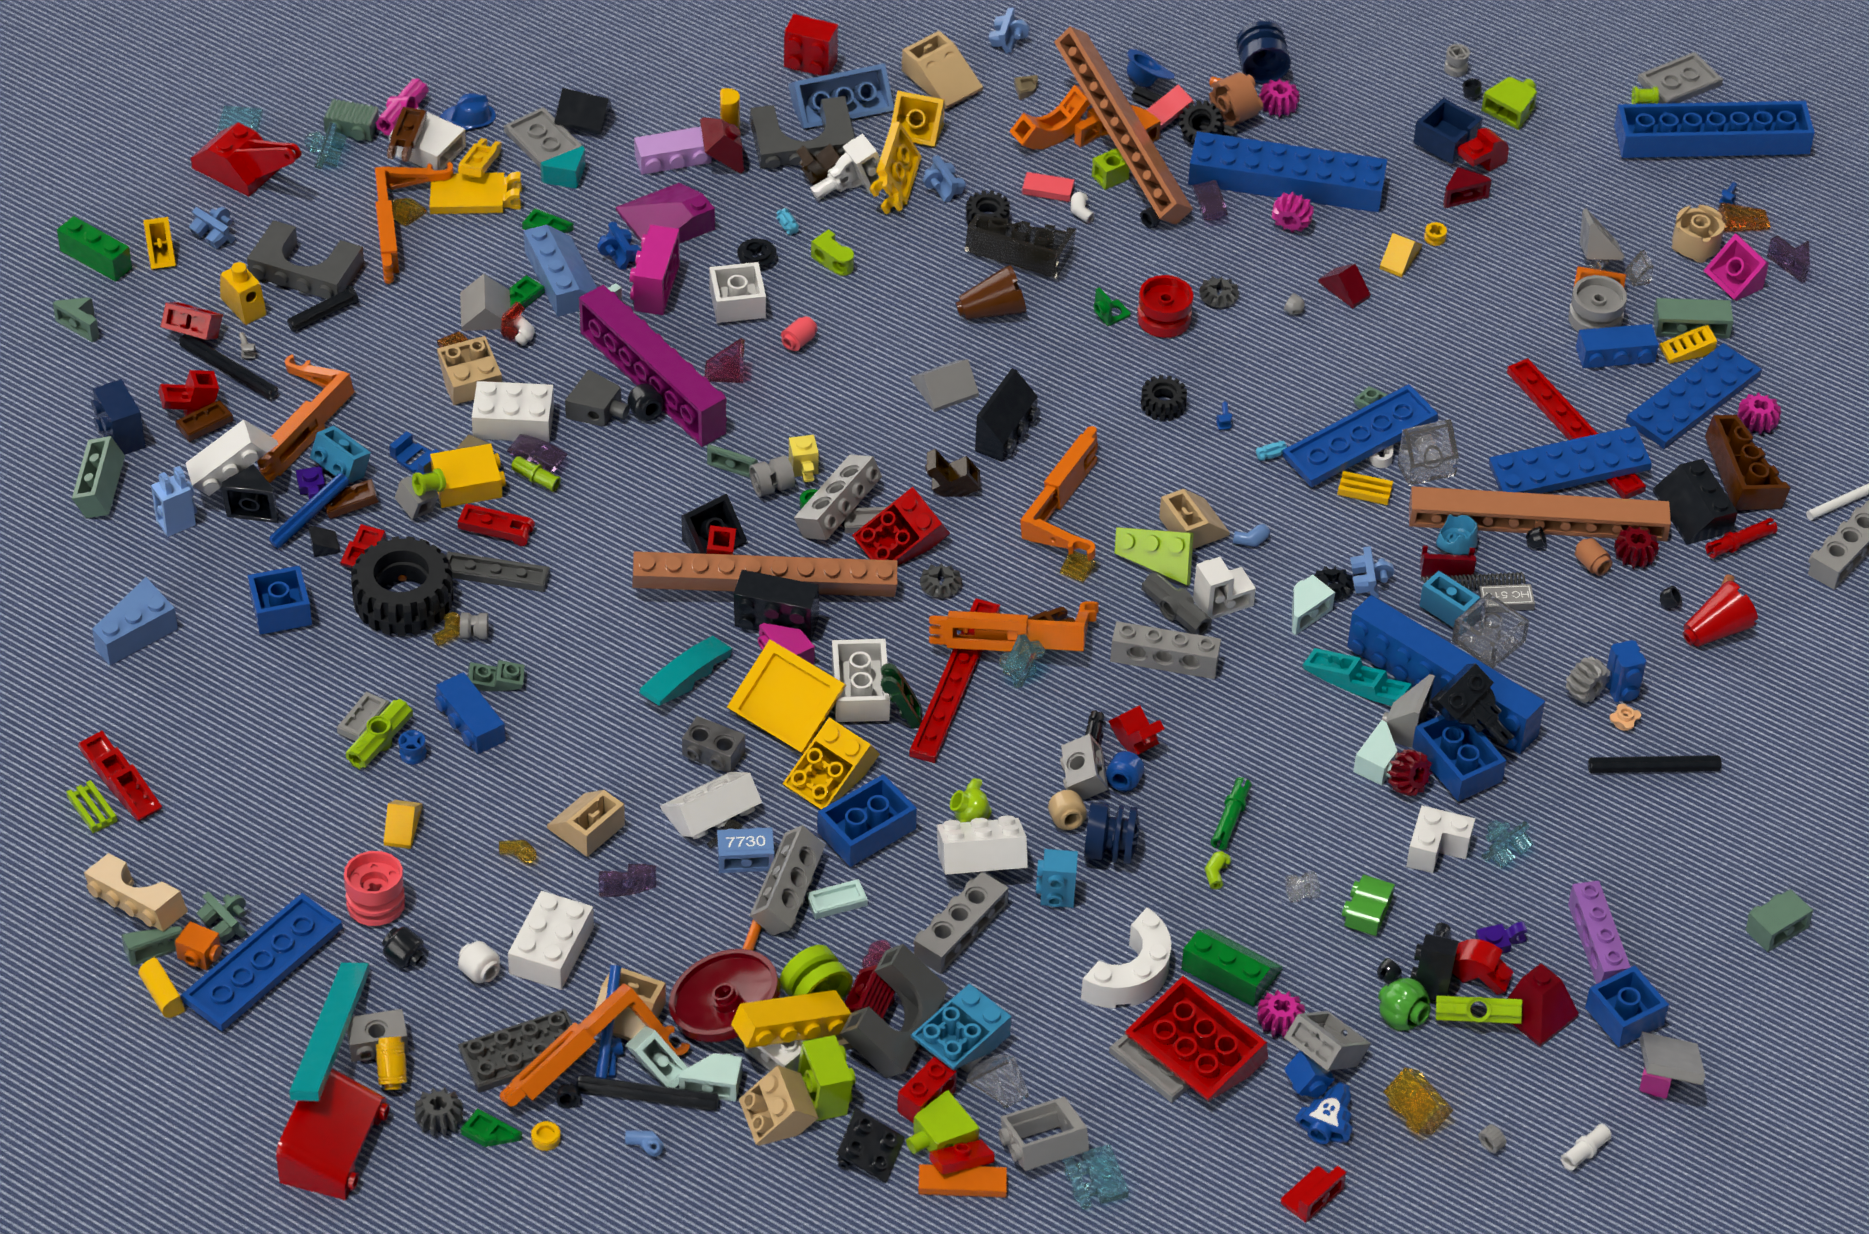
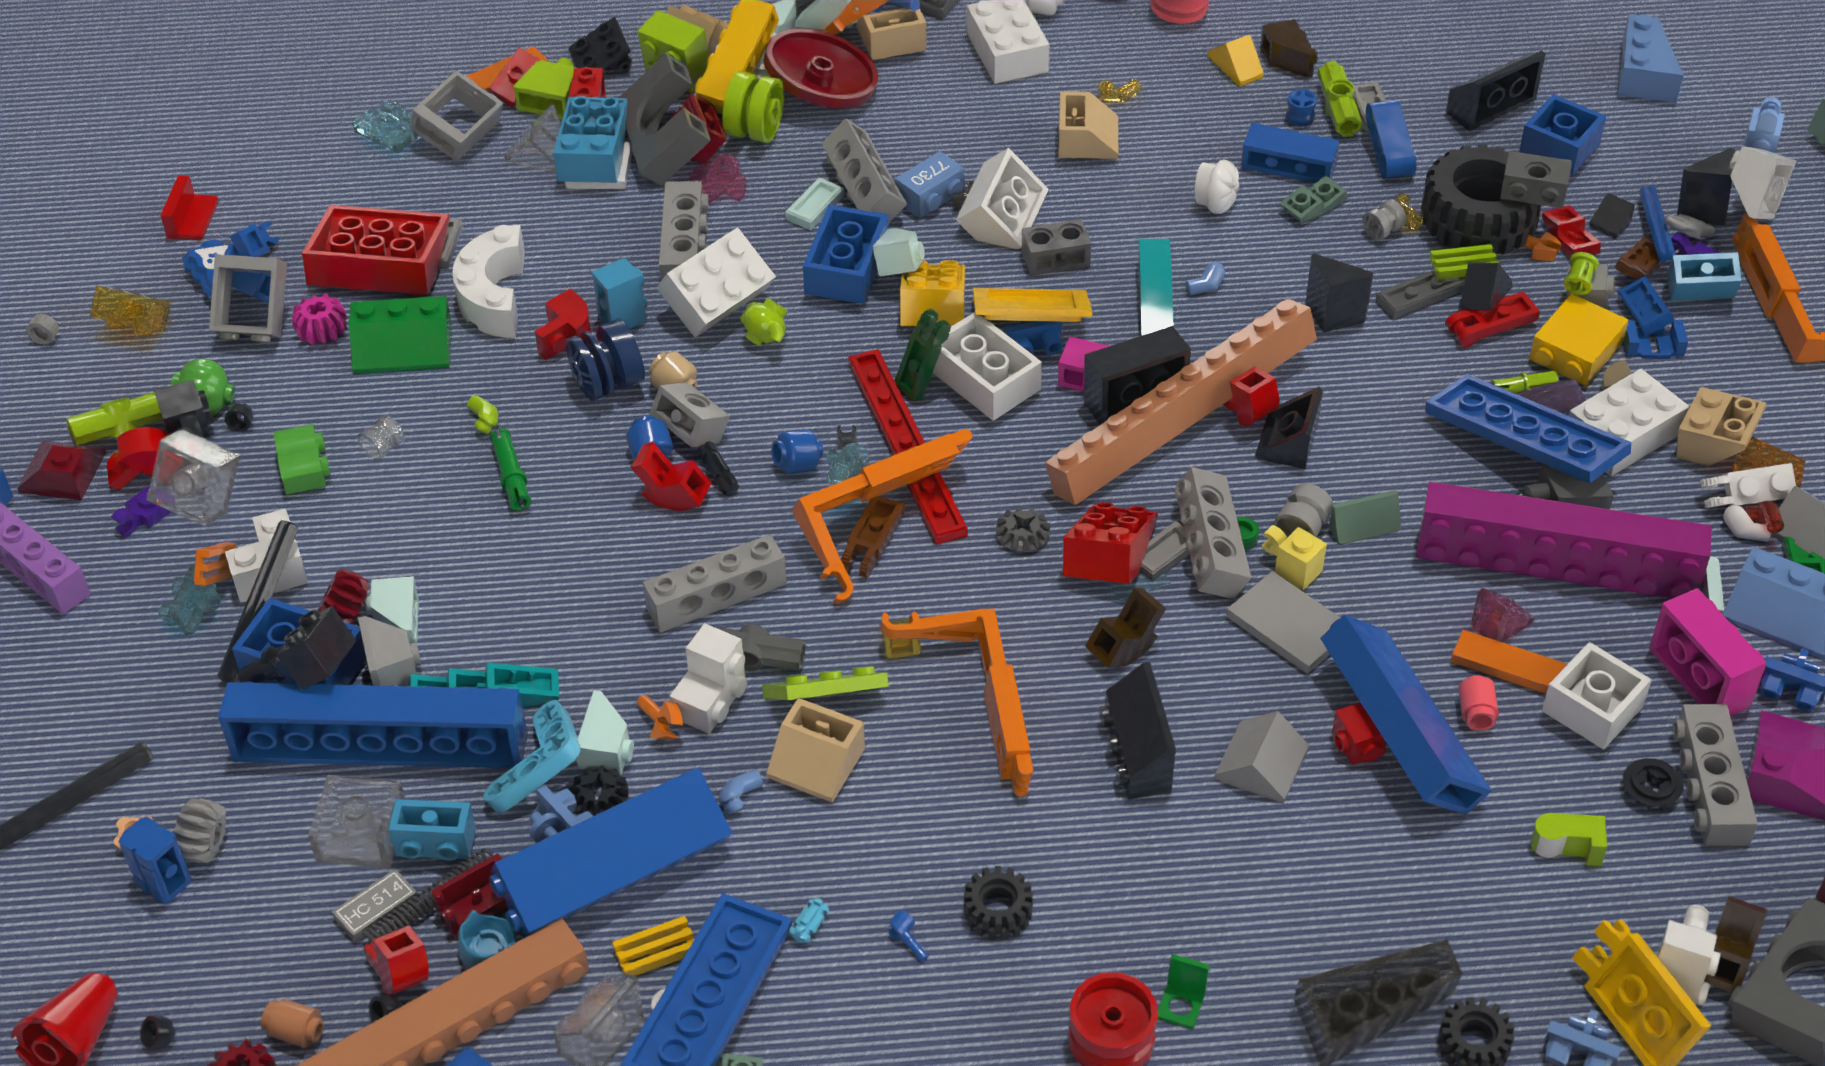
camera: 145 degrees right, 0 degrees up
(271, 659) = (1496, 91): none -> black slope
(303, 494) = (1689, 226): none -> light grey piece
(357, 799) = (1288, 47): none -> dark brown slope
(383, 534) = (1536, 179): none -> dark grey brick
(393, 673) = (1390, 139): none -> blue beam
(394, 469) = (1645, 306): none -> blue plate
(470, 559) = (1454, 261): none -> lime tile
(481, 532) = (1484, 286): none -> black slope
(497, 340) = (1752, 485): none -> white hinge
(556, 712) = (1217, 185): none -> white piece
(584, 432) = (1528, 428): none -> blue plate
(584, 579) = (1337, 293): none -> black slope
(636, 880) = (1000, 108): clear purple slope -> none
(638, 662) = (1209, 281): none -> medium blue arm
(722, 233) = (1715, 775): none -> light grey brick
(756, 352) = (1505, 661): none -> orange tile
(787, 221) = (1676, 854): medium azure piece -> none
(834, 783) = (898, 252): none -> light aqua slope
(843, 434) = (1284, 620): none -> light grey tile
(854, 338) = (1405, 715): none -> blue brick
(881, 357) = (1357, 734): none -> red brick
(993, 297) = (1319, 897): reddish brown cone -> none
(994, 700) = (846, 438): none -> clear smoke hand
(1035, 705) = (797, 451): none -> blue head
(1105, 894) = (566, 318): none -> red brick
(1267, 589) = (661, 716): none -> orange bar
(1290, 1109) = (253, 240): none -> blue plate
(1354, 597) = (557, 750): none -> medium azure beam
(1360, 524) = (609, 853): none -> blue brick
(1457, 904) = (193, 477): none -> clear brick
(1467, 794) = (260, 592): none -> black axle
(1479, 839) = (221, 564): none -> orange tile
(1517, 543) = (398, 960): none -> red brick

